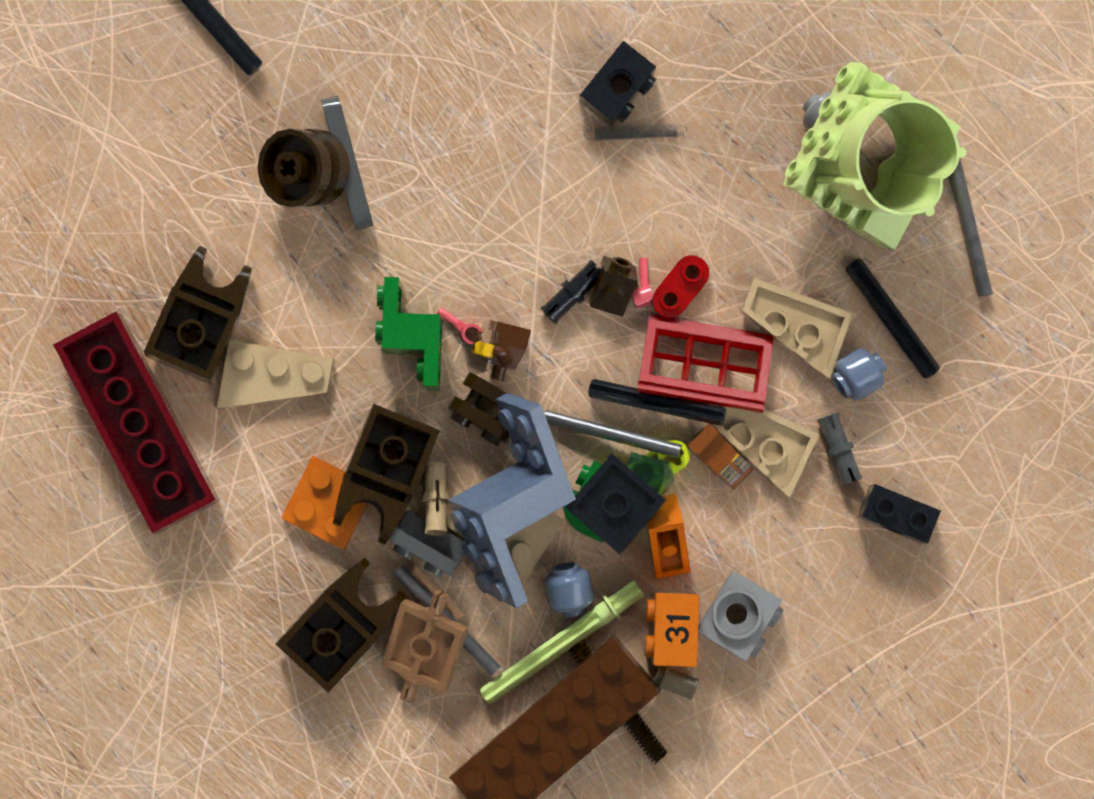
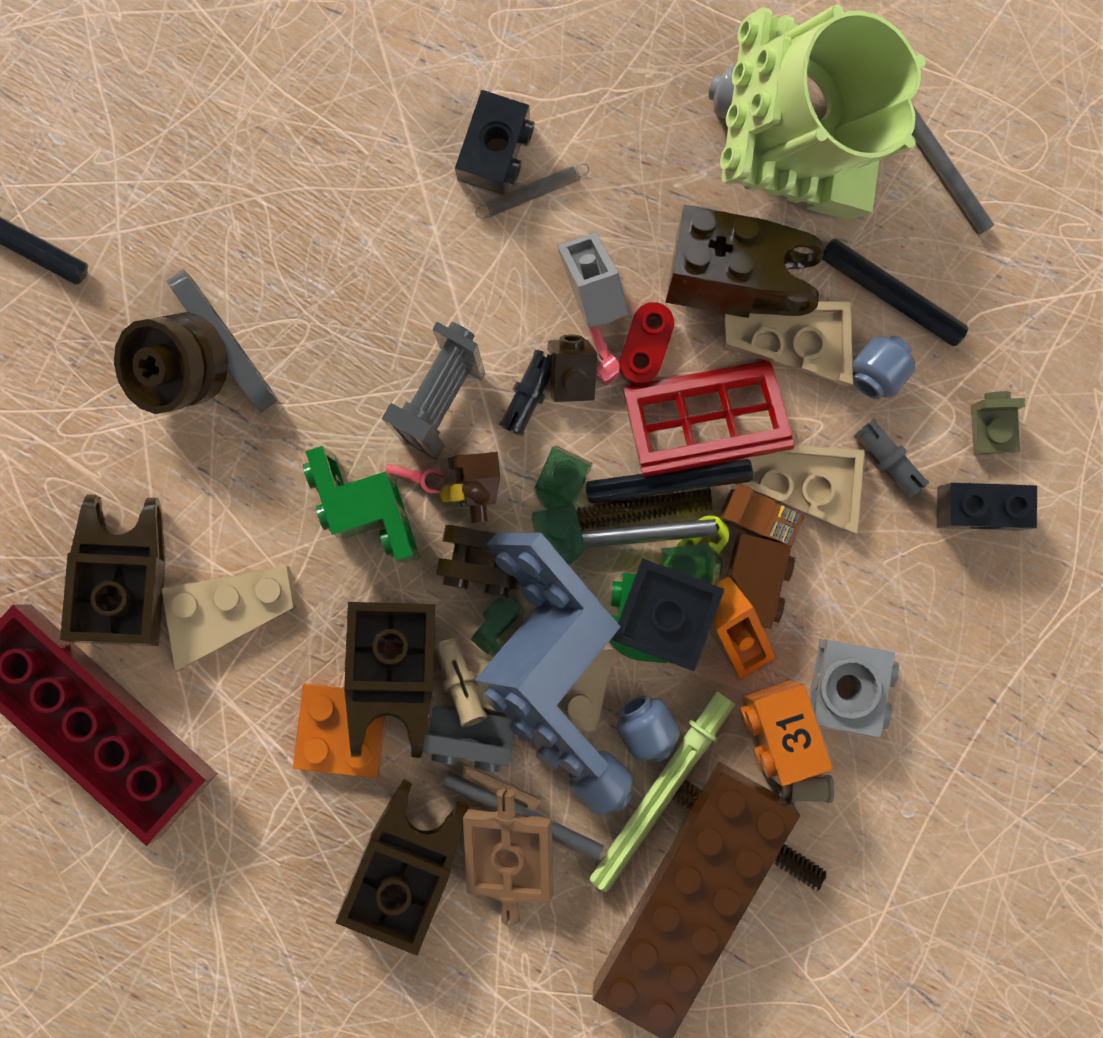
camera: 20 degrees left, 0 degrees up
(478, 287) = (420, 419): none -> dark grey fence
(484, 460) = (499, 617): none -> clear green plate
(517, 623) = (607, 792): none -> sand blue head
(558, 410) = (562, 530): none -> clear green plate
(573, 369) = (561, 478): none -> clear green plate
(623, 414) = (644, 507): none -> dark brown axle
(656, 221) = (593, 280): none -> light grey slope
(699, 500) = (759, 572): none -> reddish brown slope
(774, 252) = (740, 265): none -> dark brown brick
(933, 452) = (996, 424): none -> olive bracket

